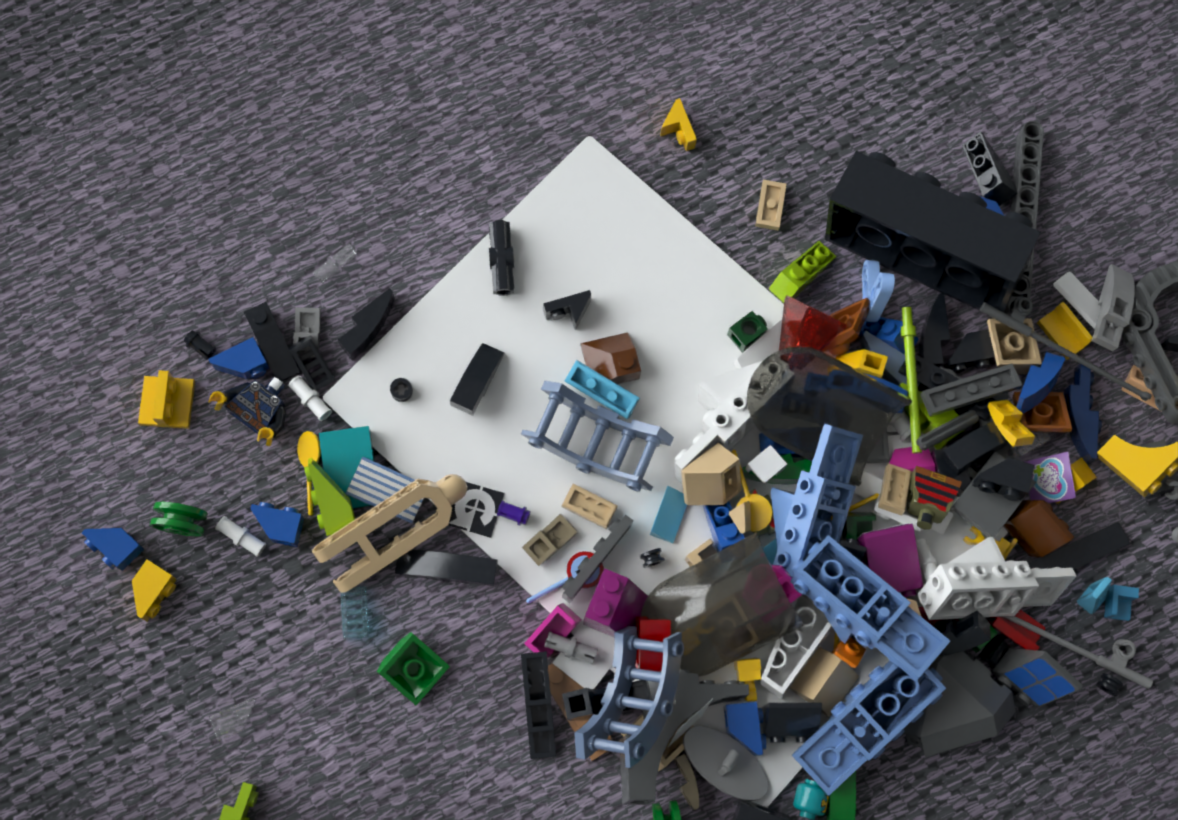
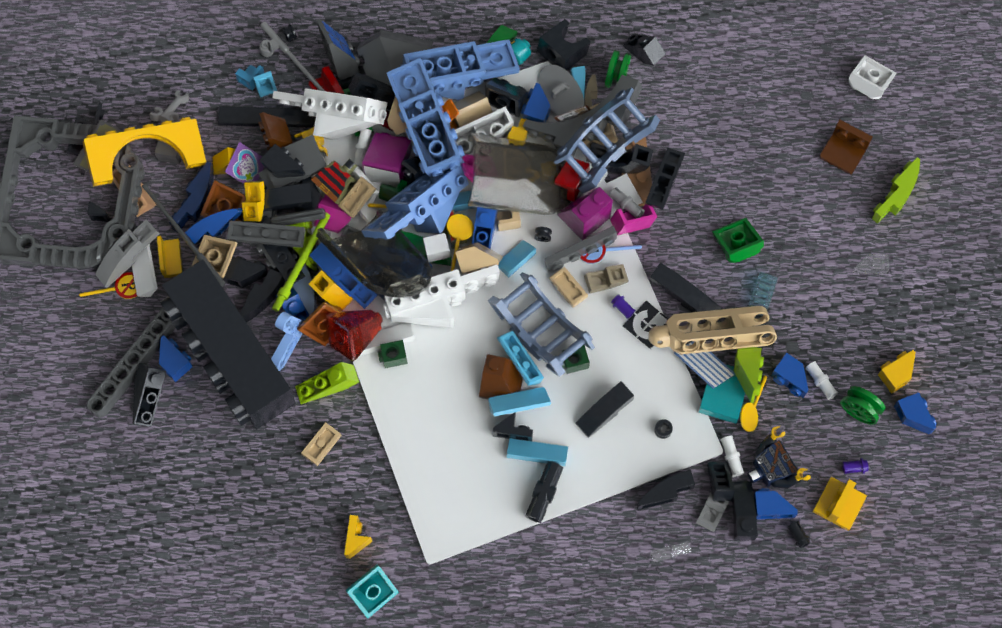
camera: 145 degrees left, 5 degrees down
(163, 451) = (855, 466): none -> dark purple pin
(527, 420) = (582, 364): none -> dark green brick
(528, 298) = (537, 452): none -> medium azure slope
(577, 339) = (519, 401): none -> medium azure slope
(632, 82) = (372, 591): none -> teal slope
(712, 796) = (578, 74): none -> medium azure slope
(742, 517) = (471, 225): tan slope -> none
(1093, 278) = (124, 287): none -> yellow piece

